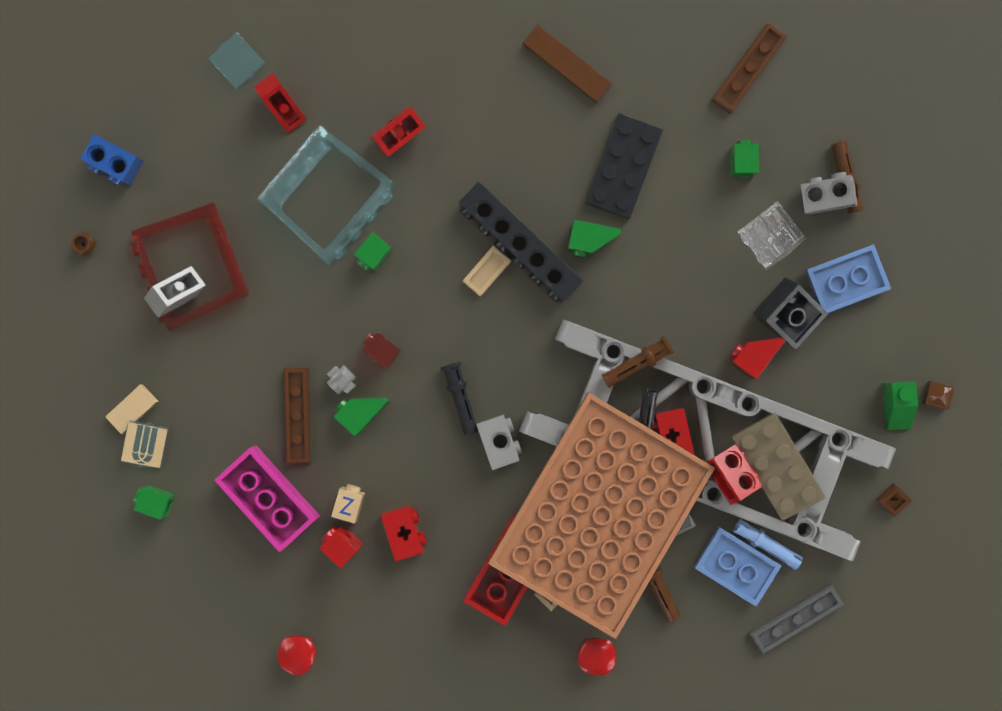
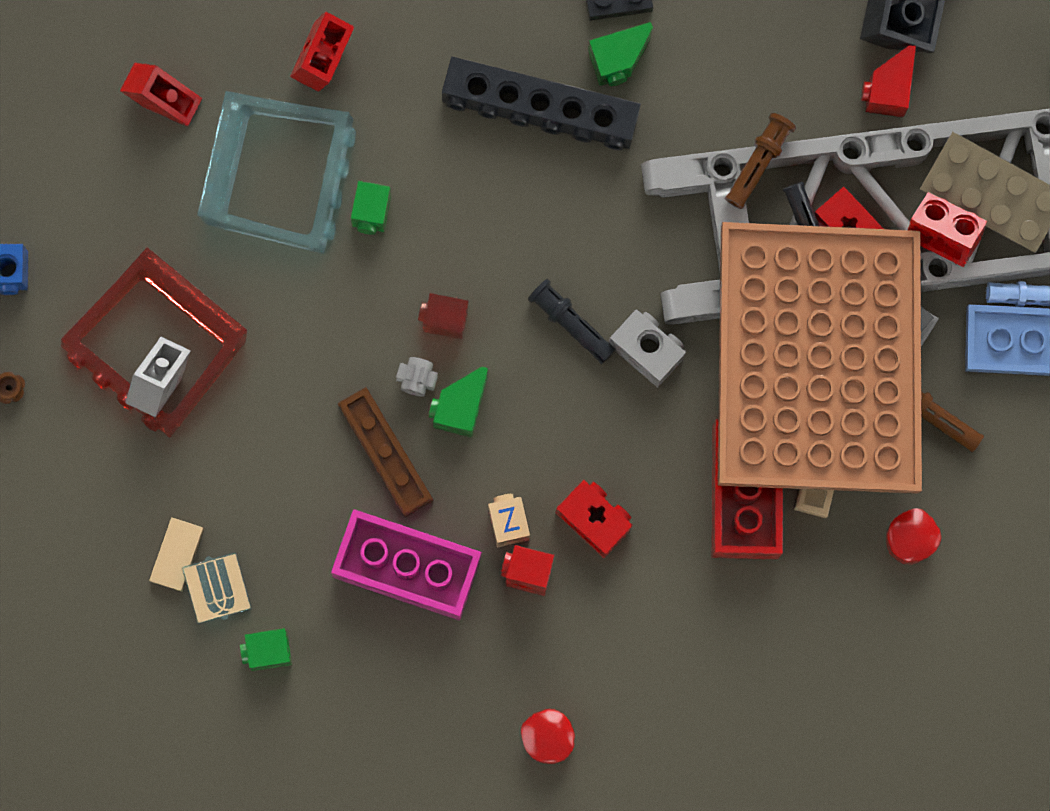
camera: 35 degrees left, 10 degrees down
(237, 60) = (79, 75): clear light blue piece -> none
(486, 271) = (518, 159): tan tile -> none

